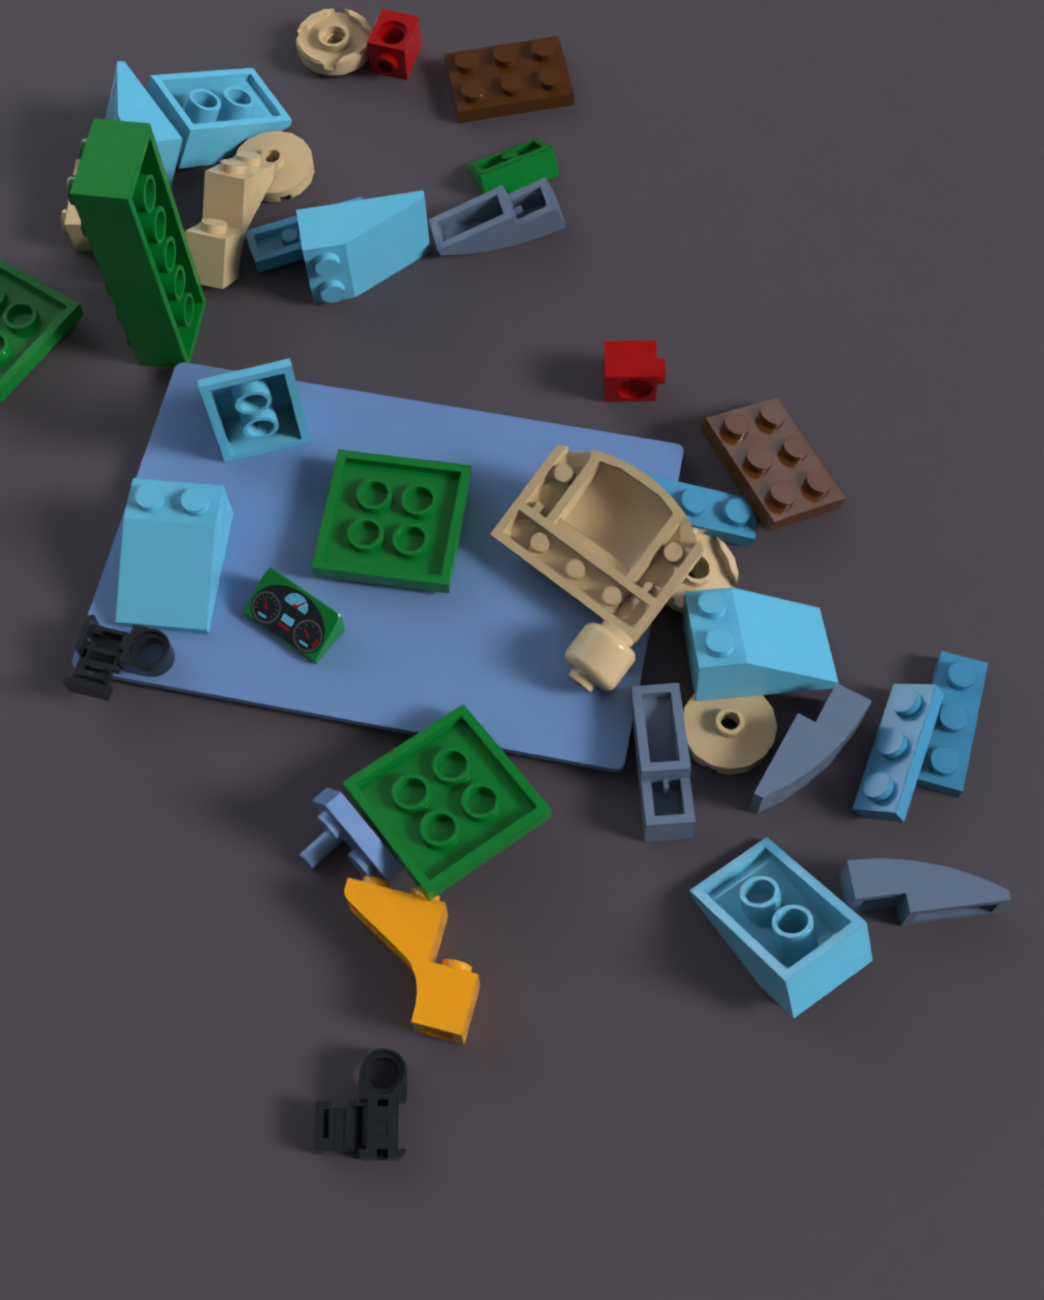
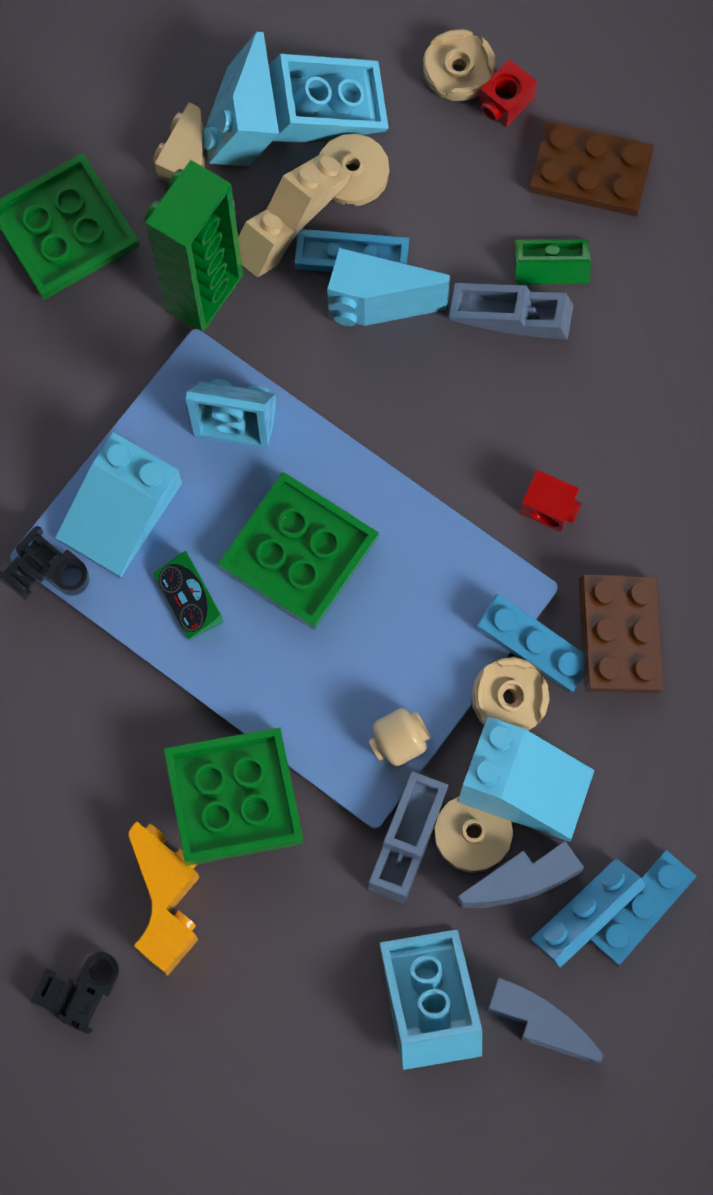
camera: 25 degrees right, 10 degrees up
(345, 824) = (148, 776): medium blue plate -> none
(602, 535) = (446, 643): tan slope -> none

